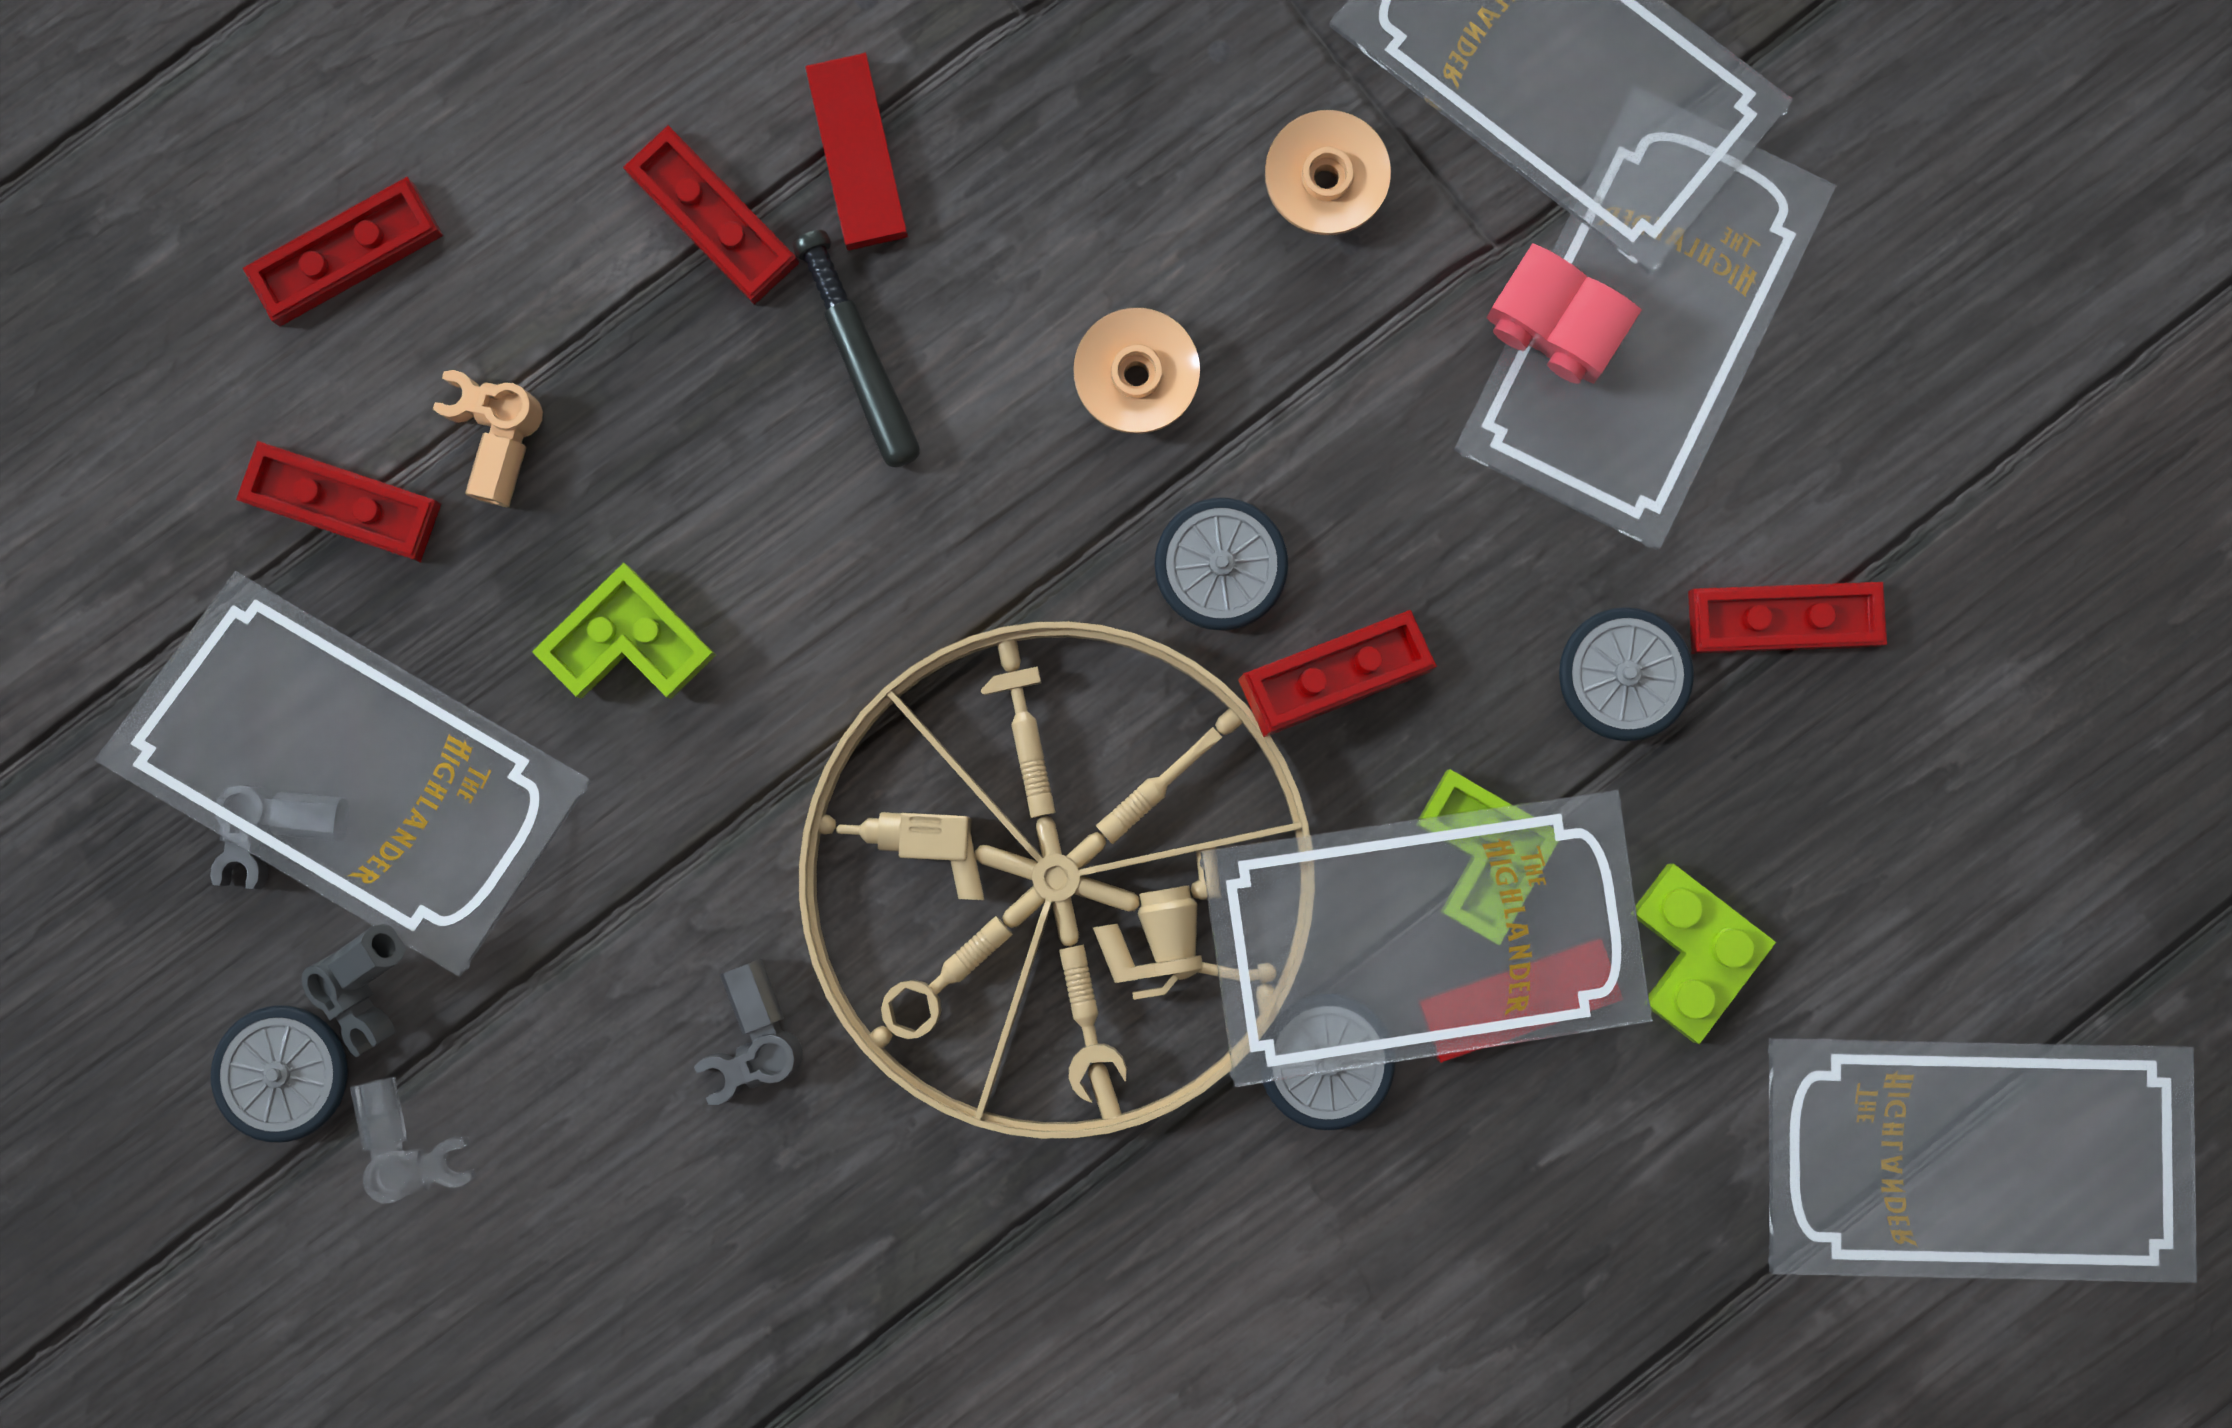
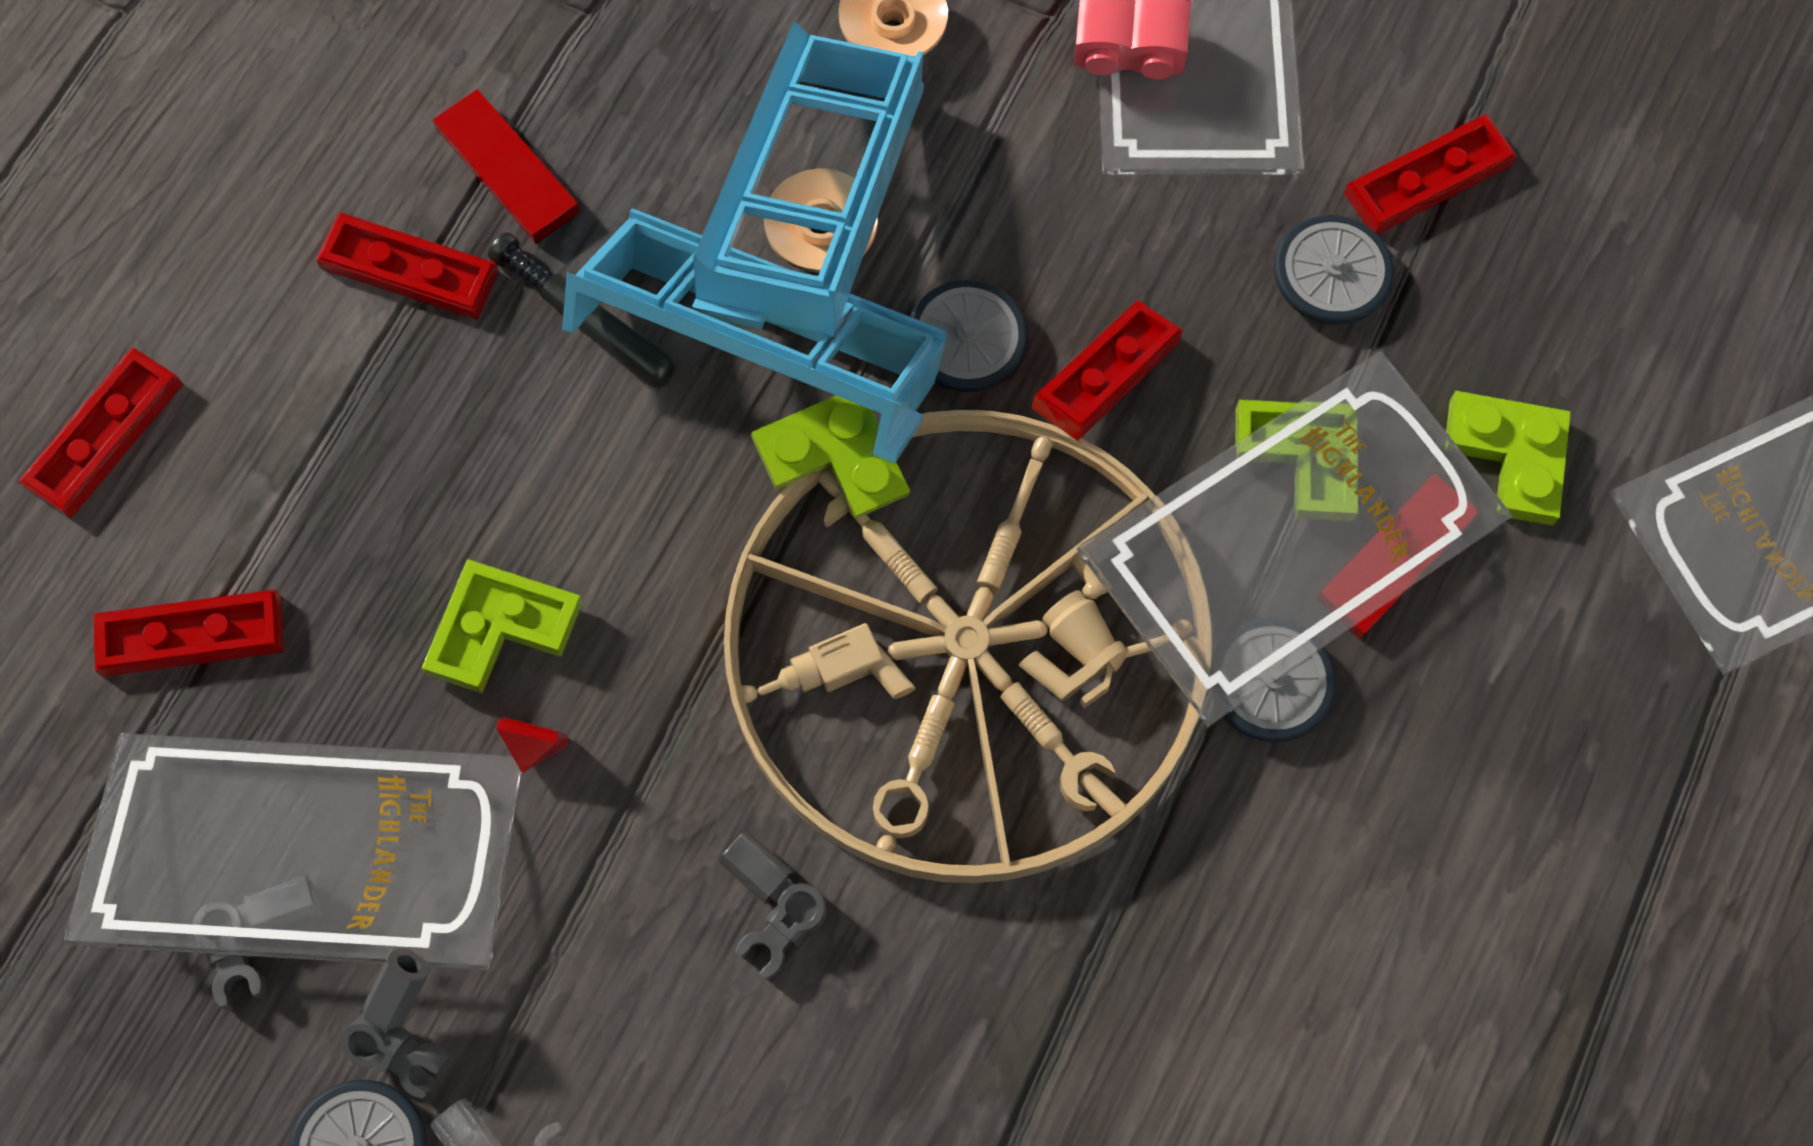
camera: 30 degrees left, 15 degrees down
(511, 415) = (308, 494): light nougat bar -> none
(601, 770) = (530, 743): none -> red slope
(1009, 448) = (760, 293): none -> medium azure piece
(1036, 621) = (837, 437): none -> lime plate
(1048, 432) = (863, 331): none -> medium azure piece

